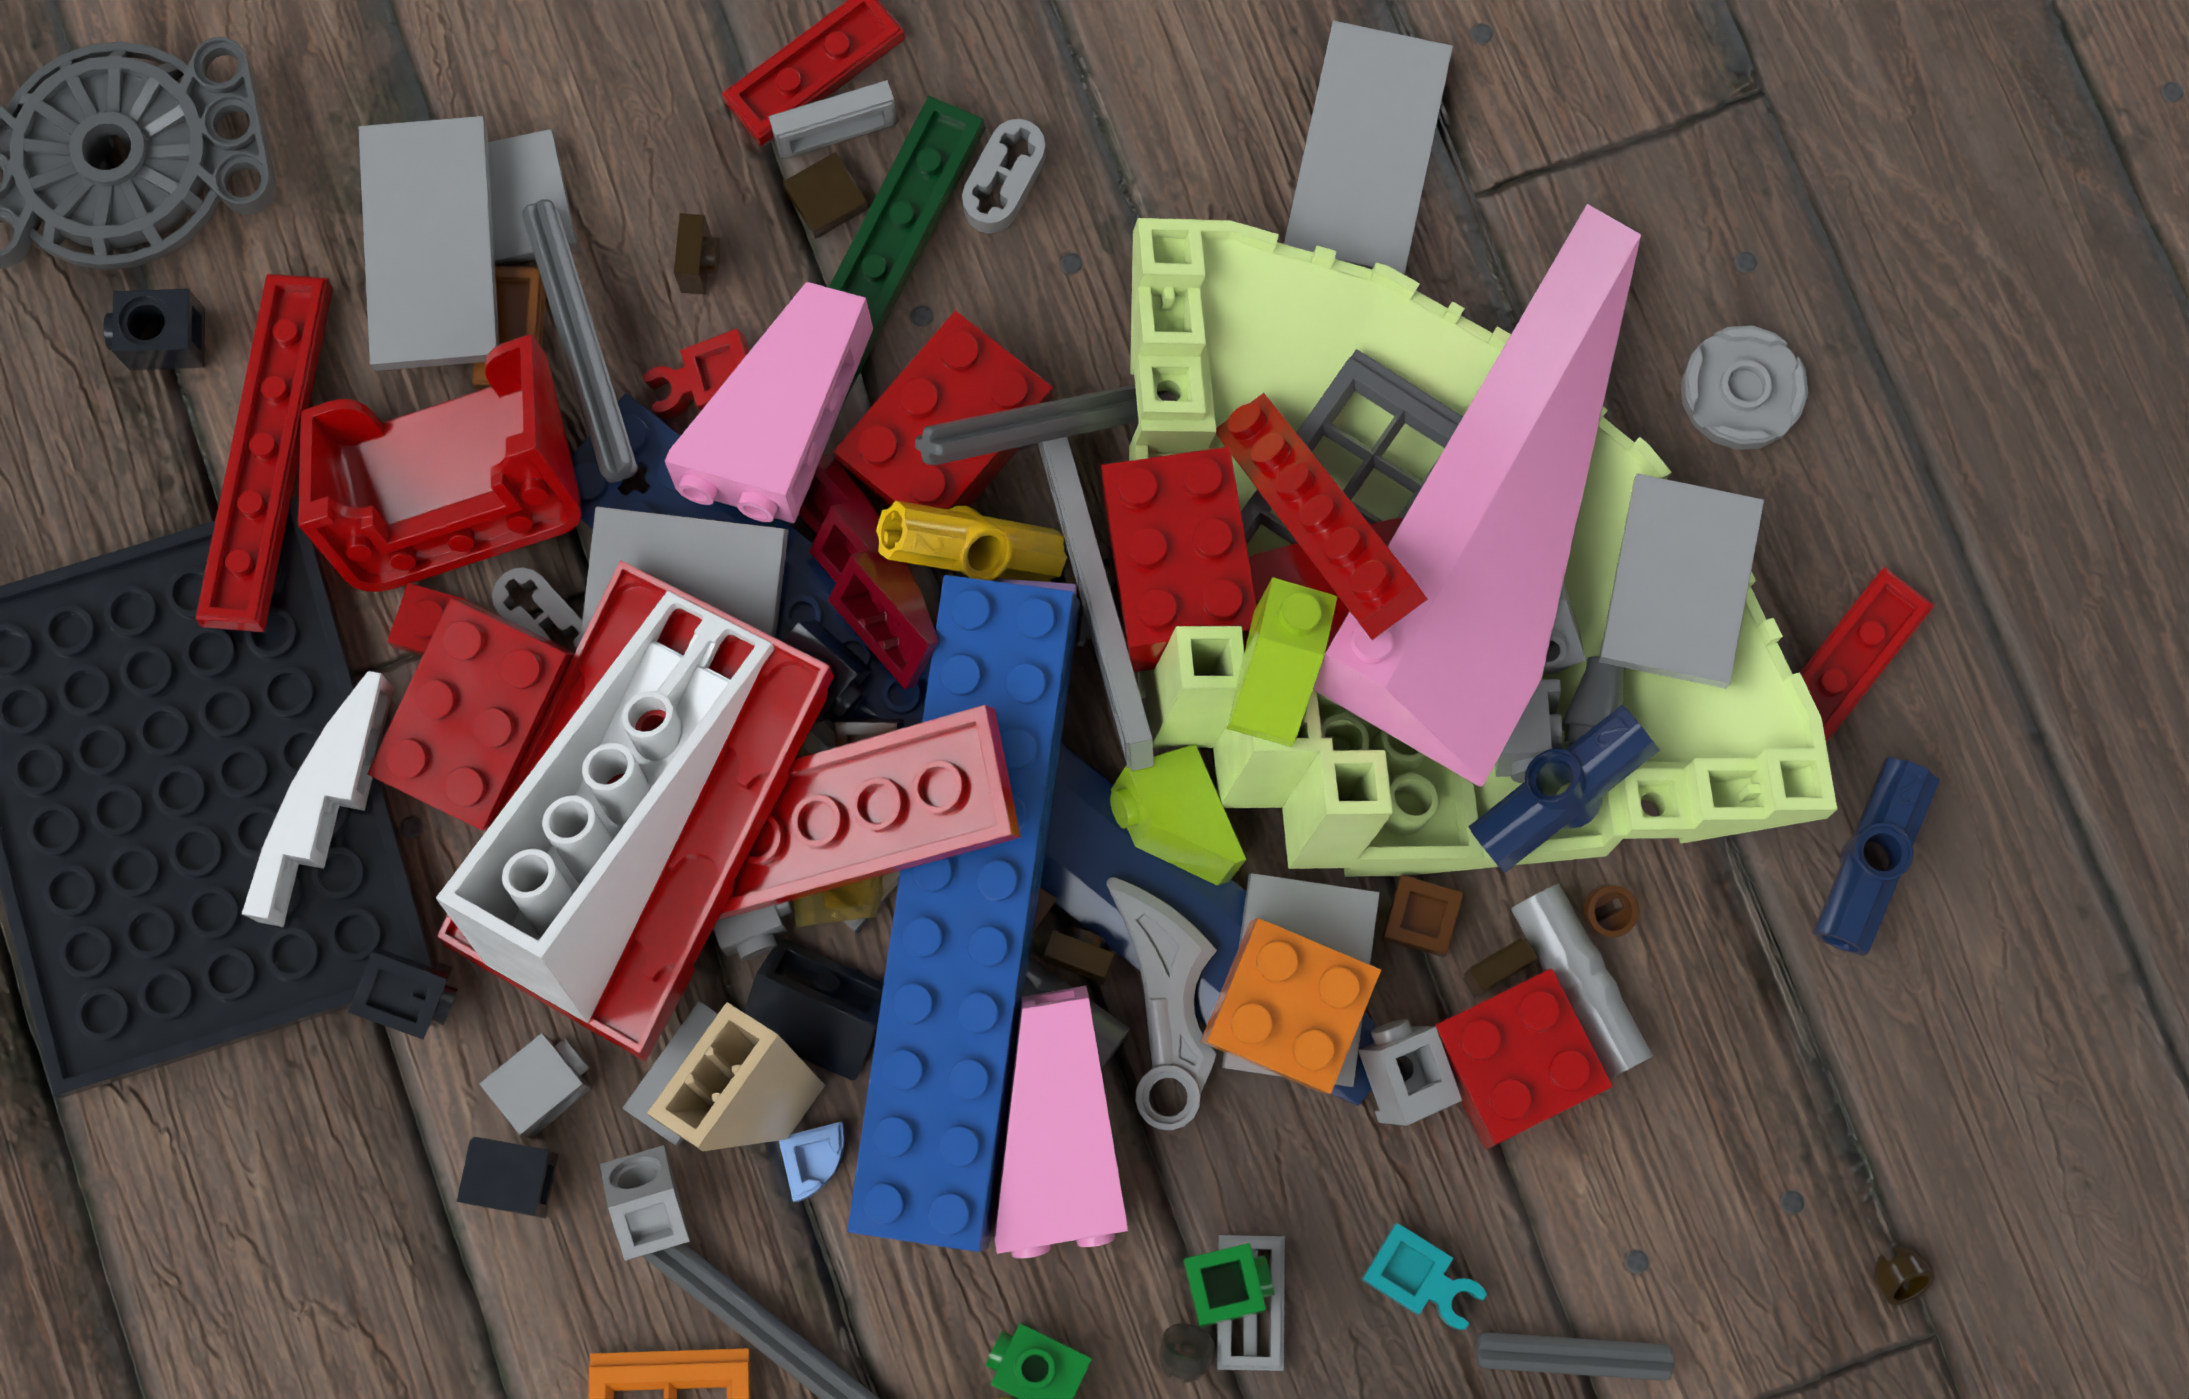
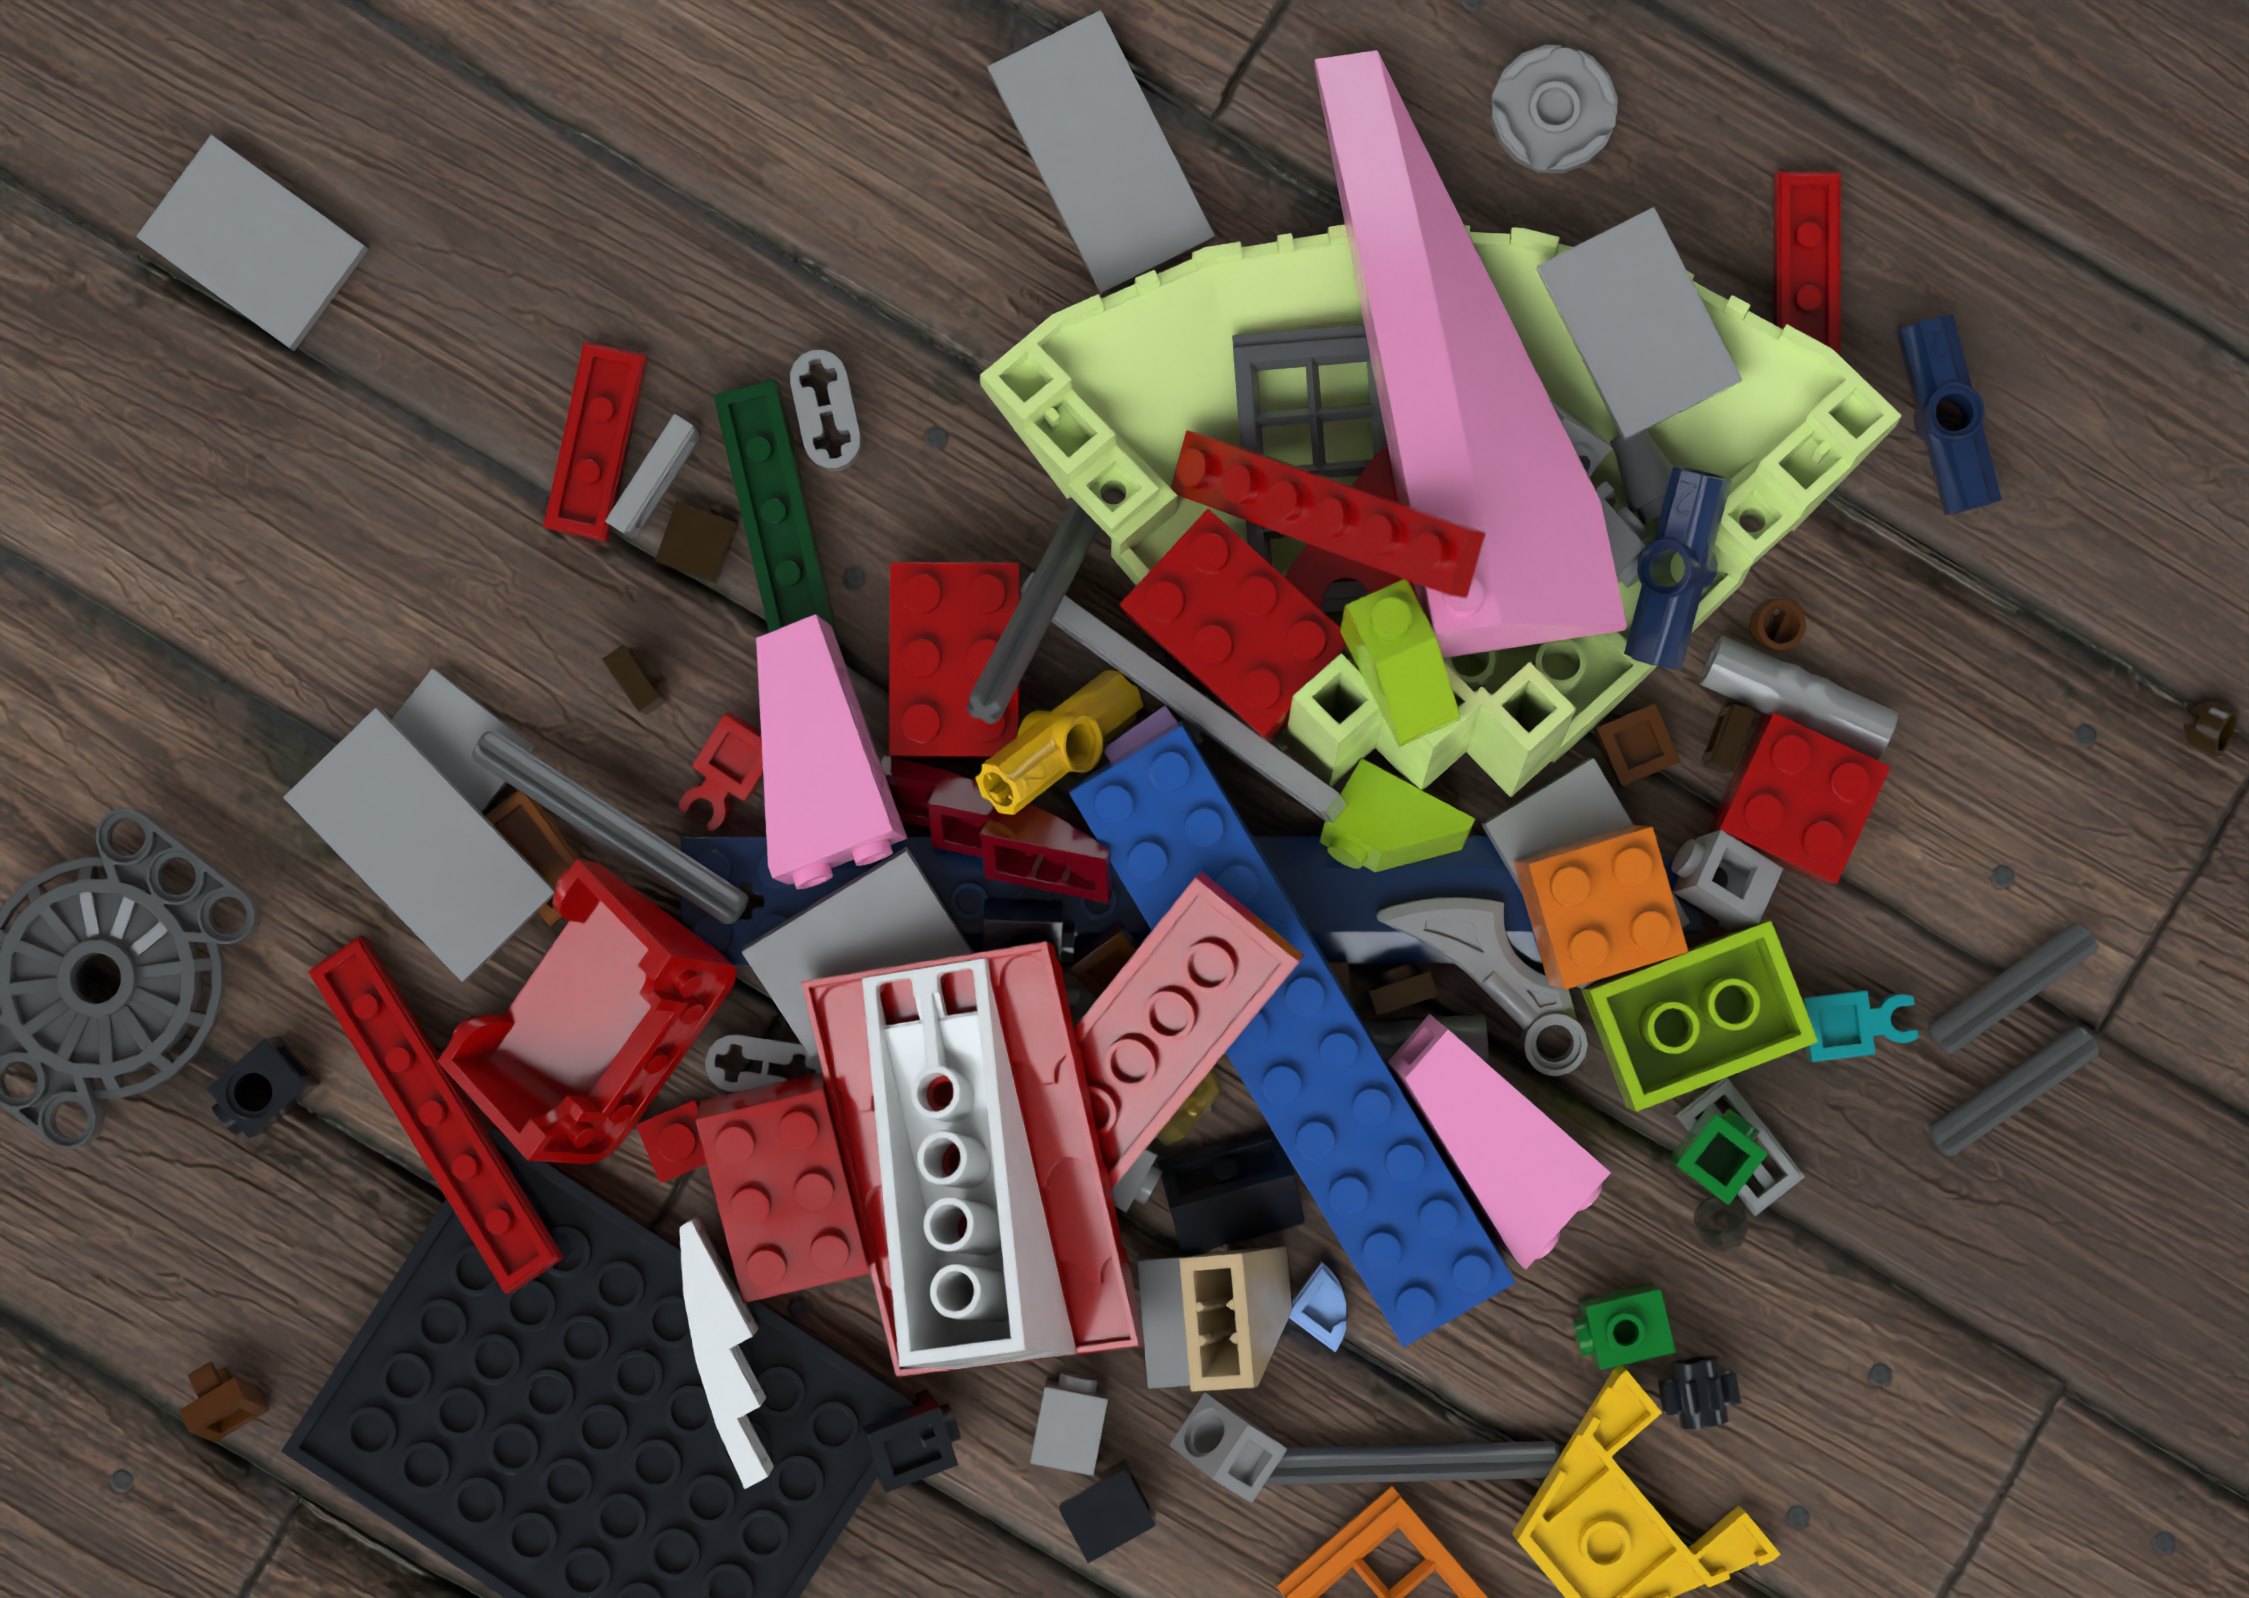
camera: 35 degrees left, 10 degrees up
(1301, 1163) = (1699, 1015): none -> lime brick

